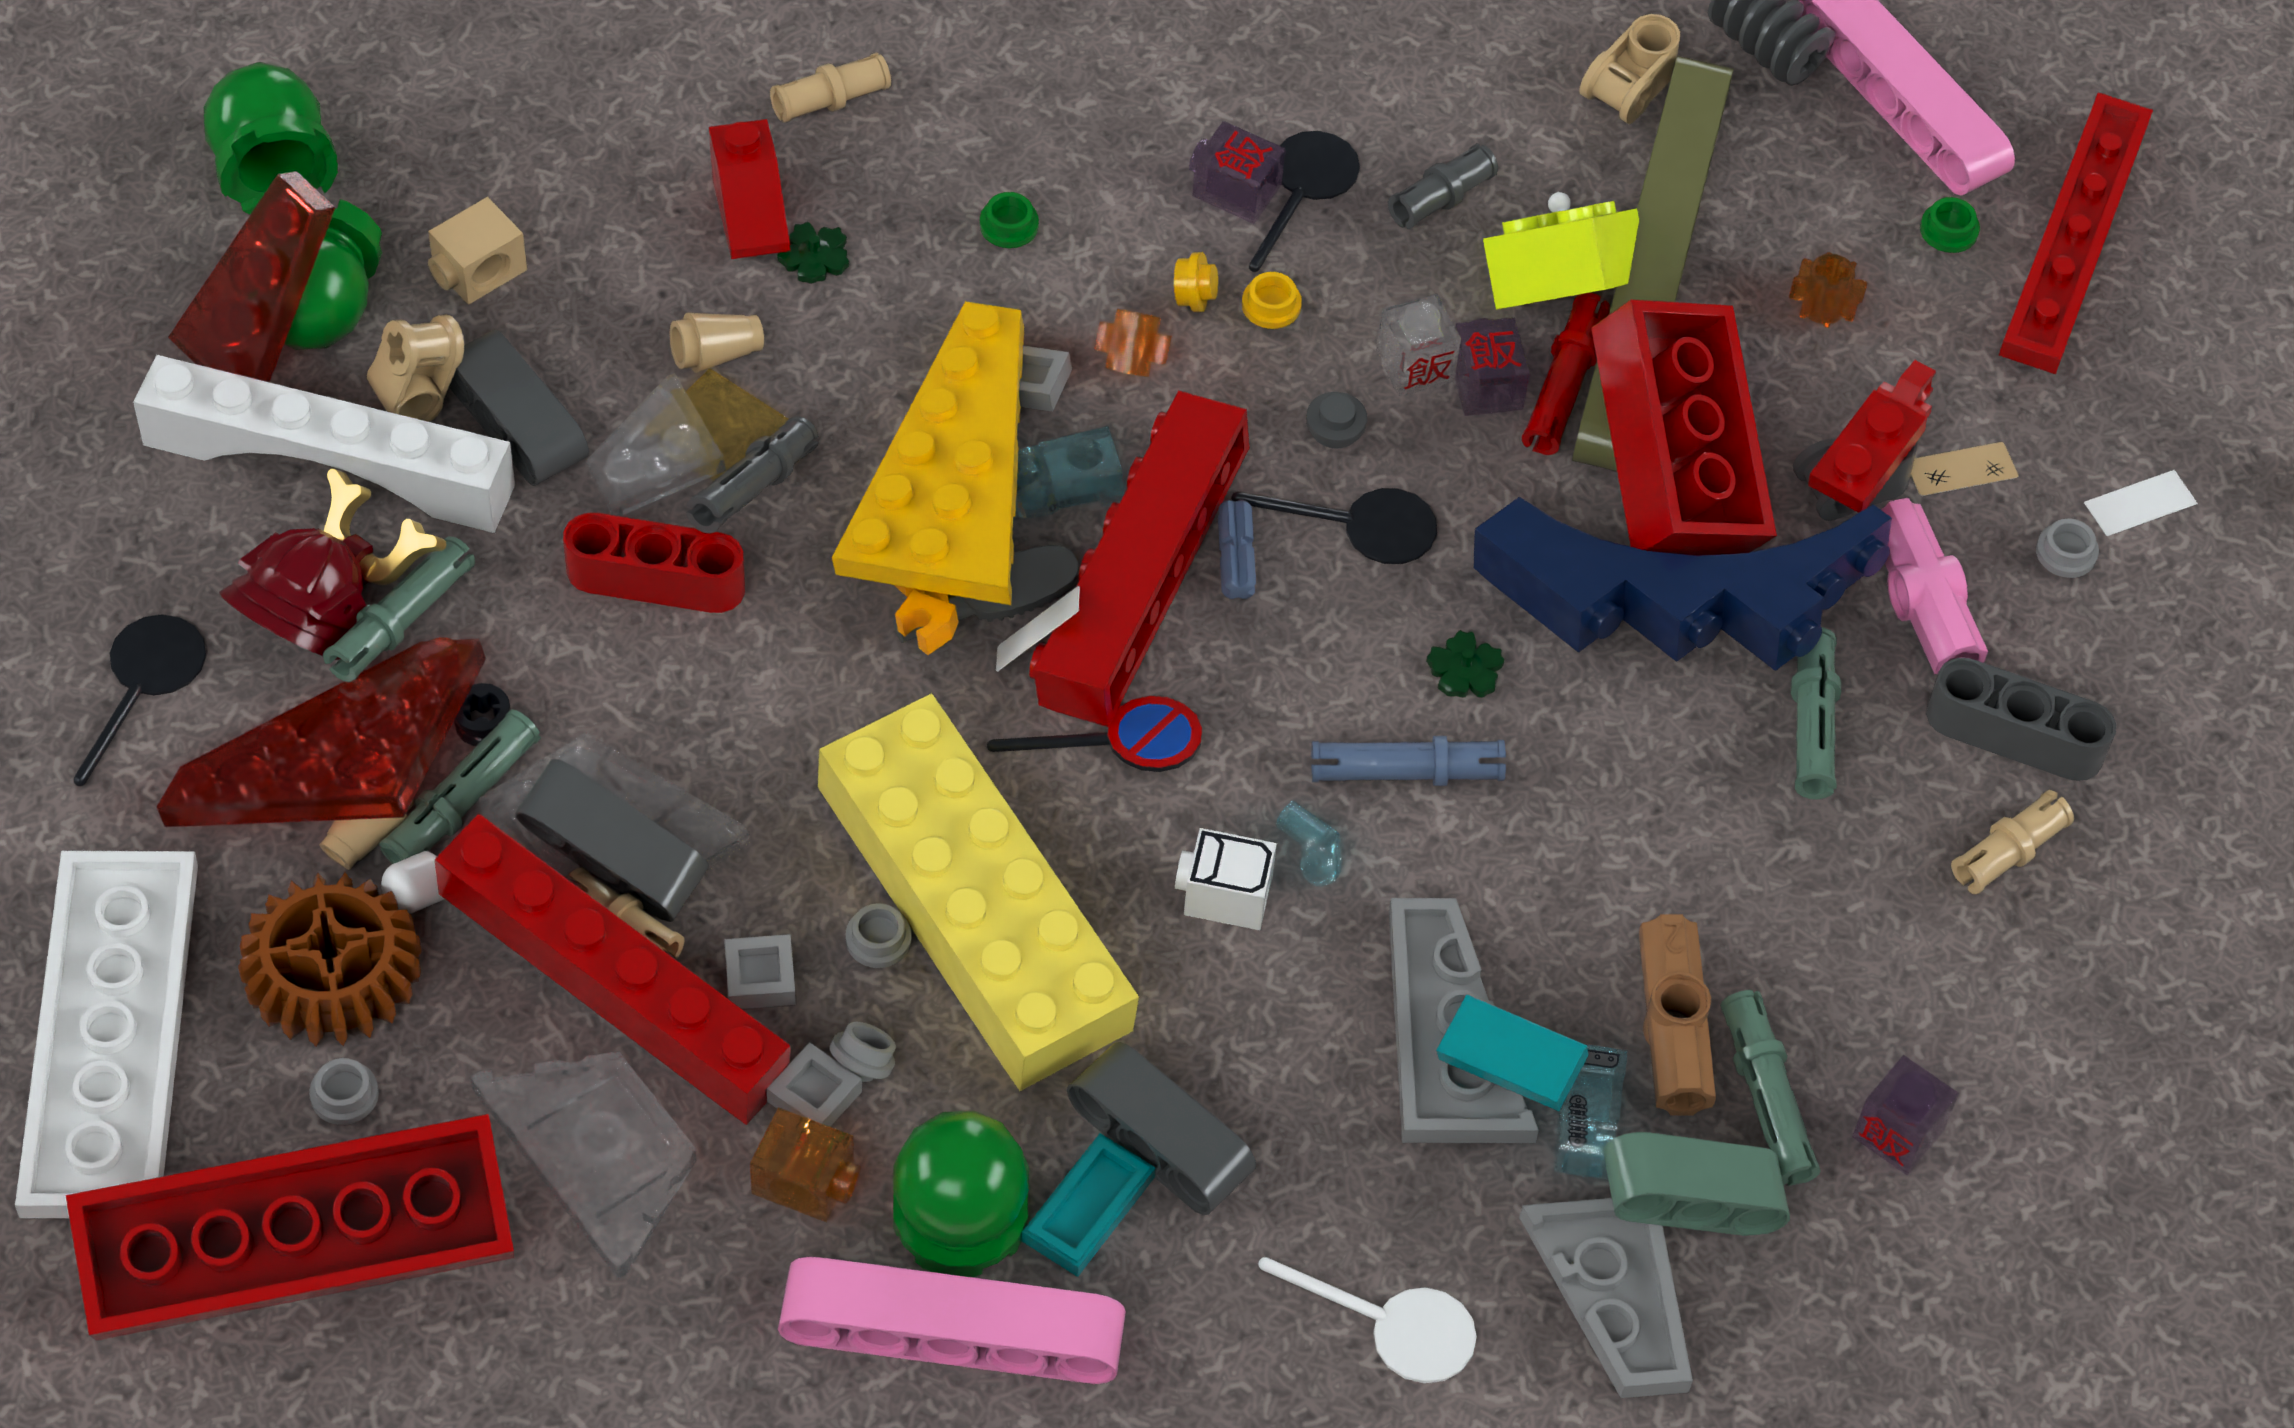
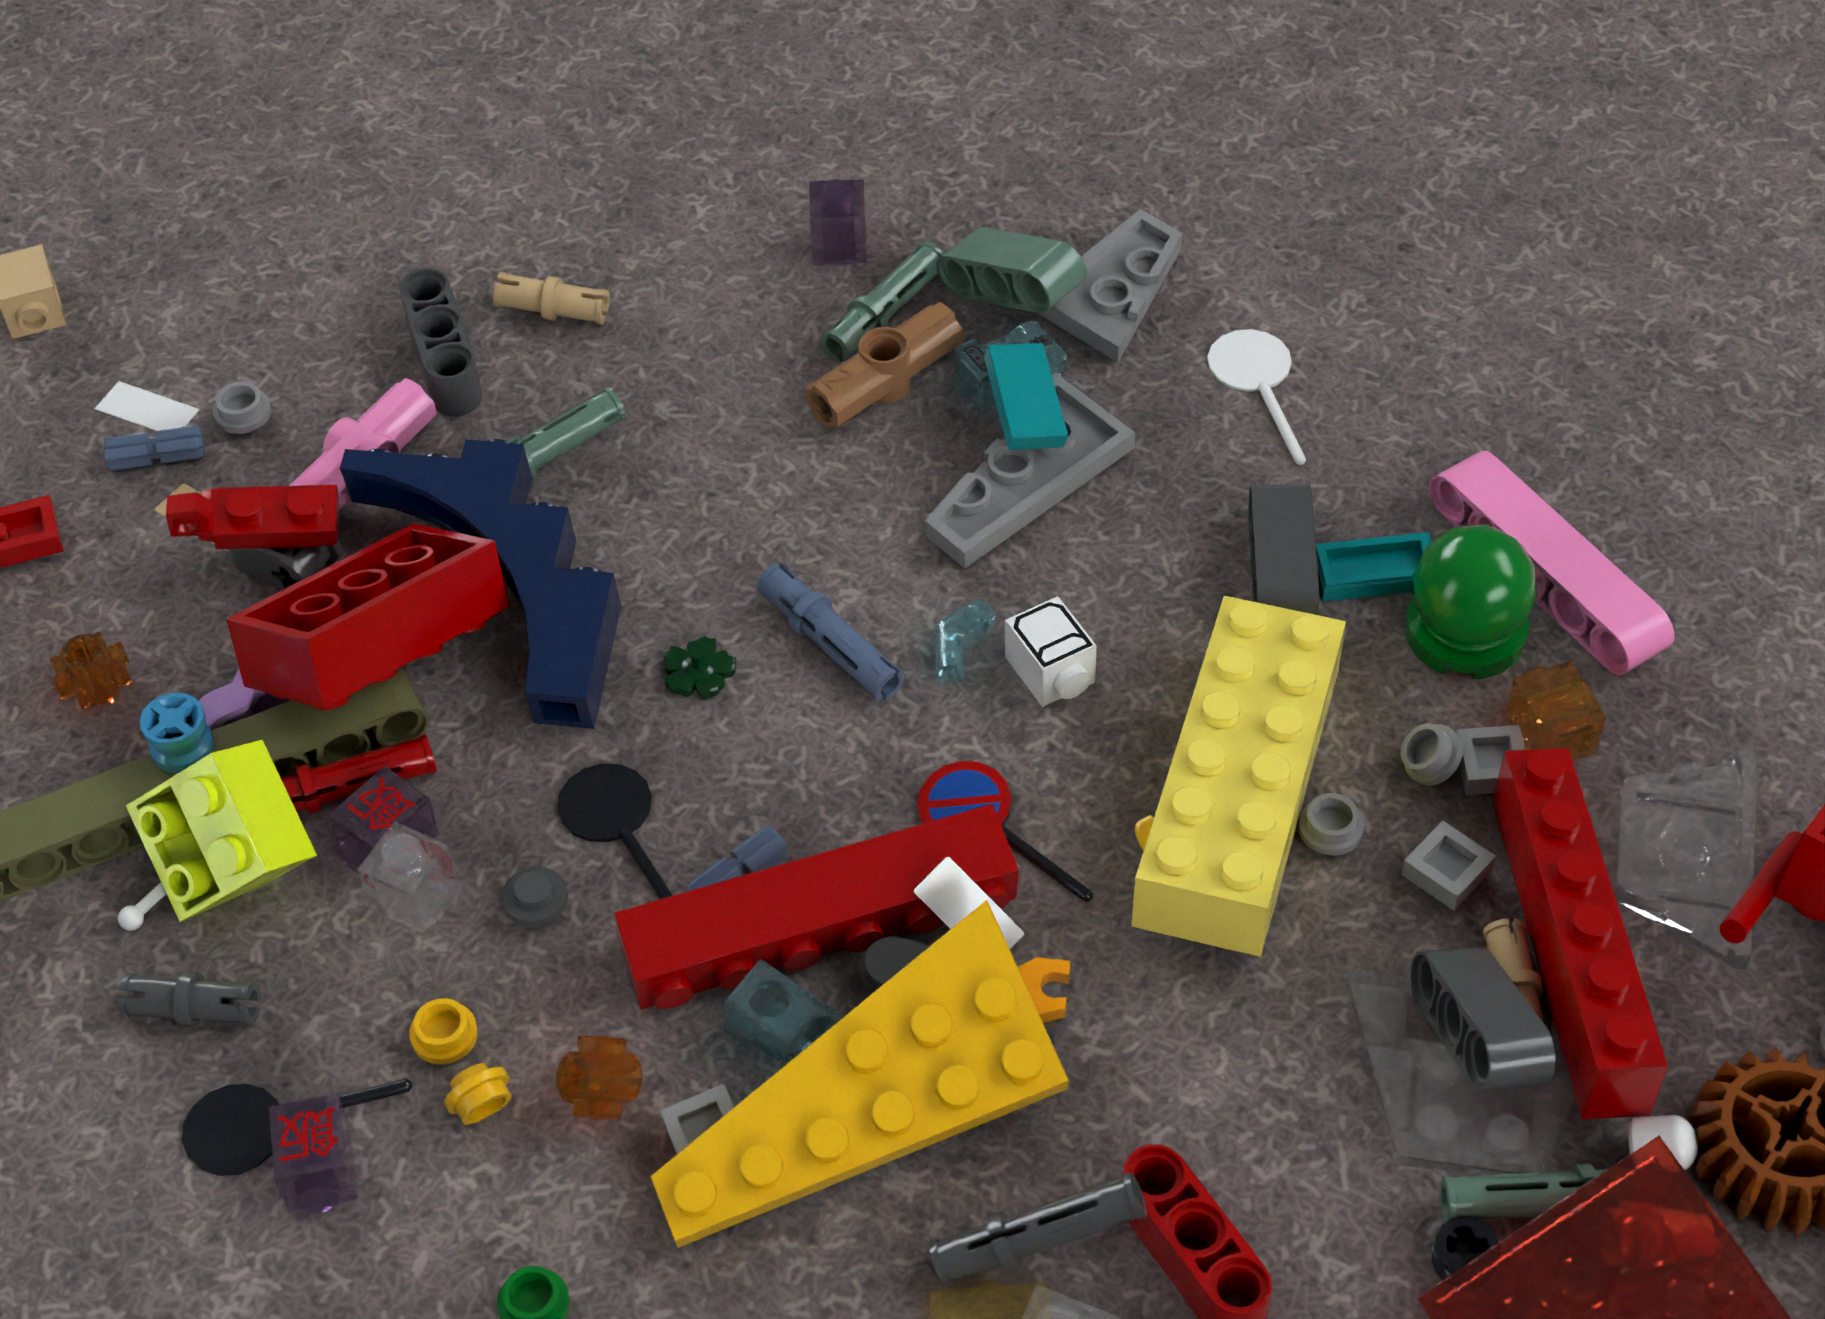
camera: 125 degrees left, 5 degrees down
(506, 1136) = (1759, 892): none -> red bar
(1688, 255) = (177, 717): none -> dark azure wheel
(2073, 468) = (140, 450): none -> sand blue piece

